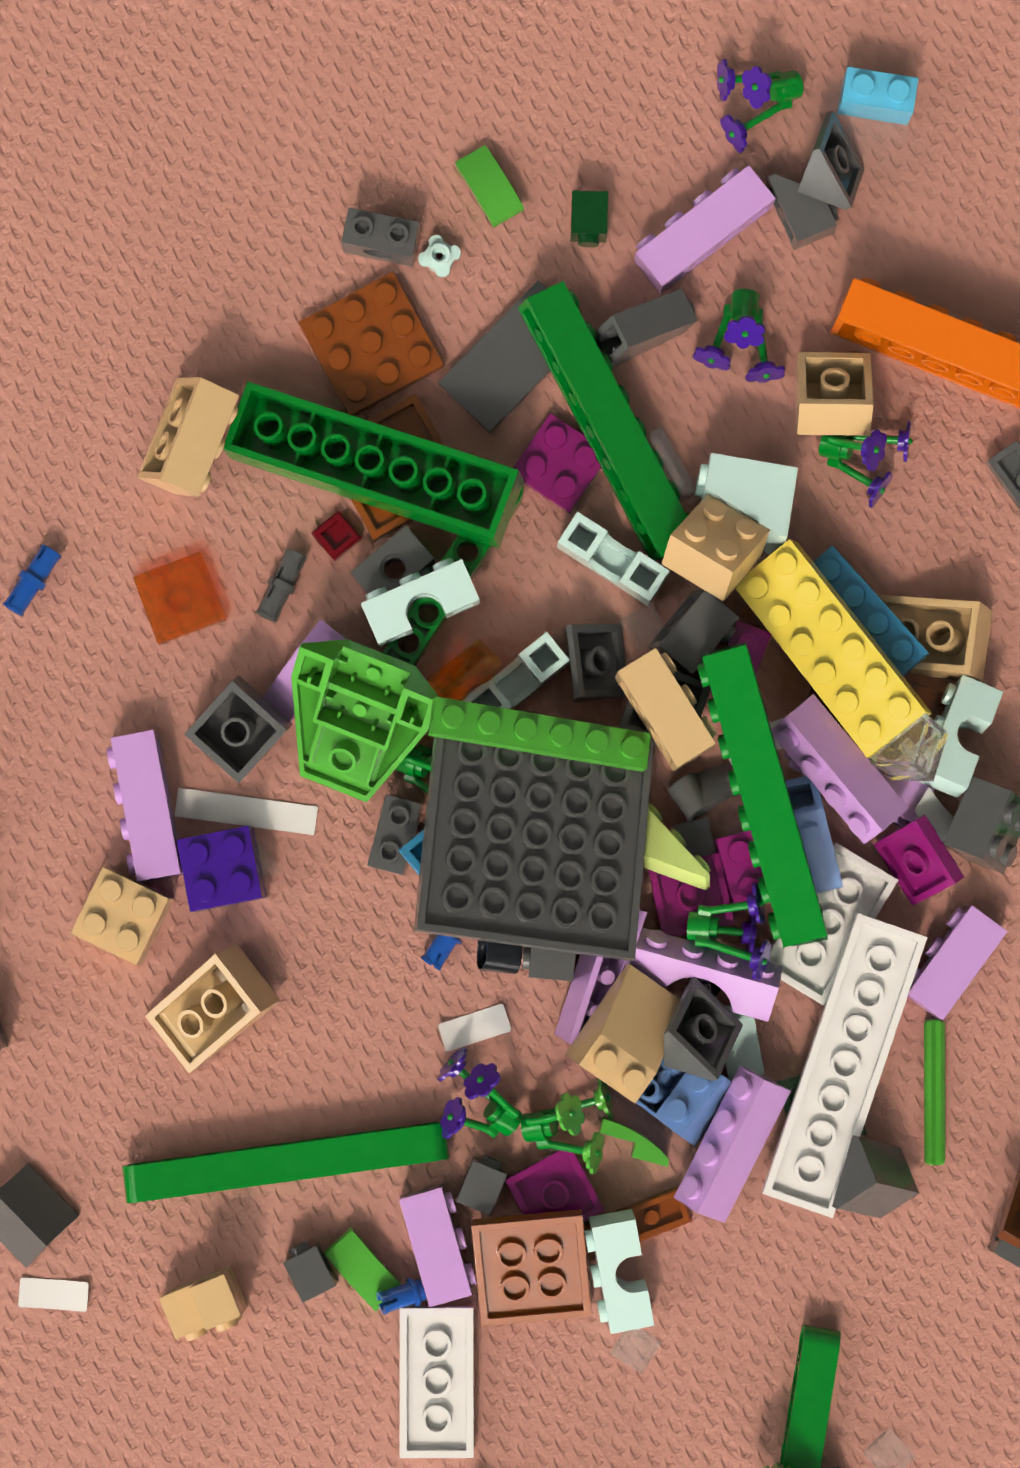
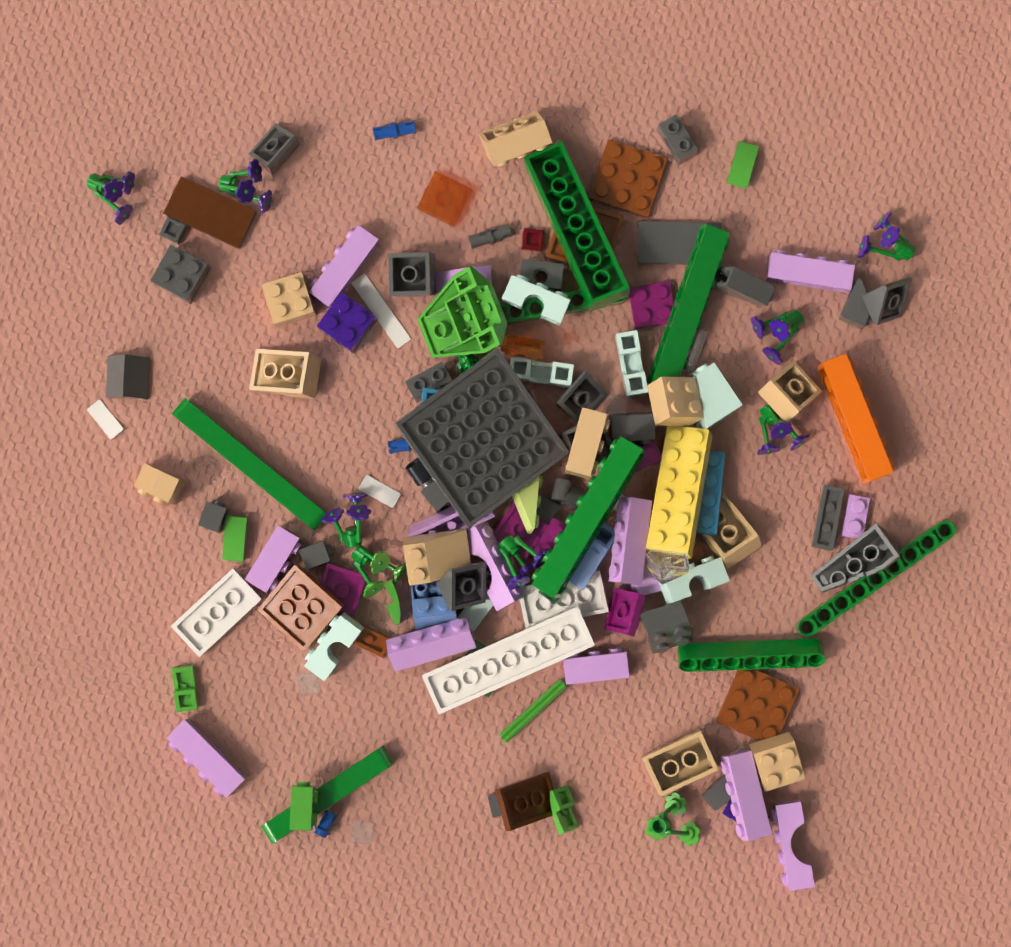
camera: 50 degrees right, 0 degrees up
(401, 1296) = (239, 564): blue pin -> none
(439, 266) = (688, 176): light aqua plate -> none
(539, 734) = (526, 400): bright green plate -> none
(589, 217) = (768, 219): dark green brick -> none
(874, 1179) = (471, 717): dark grey slope -> none
(877, 95) = (937, 292): medium azure brick -> none
(935, 813) = (651, 599): white sticker -> none

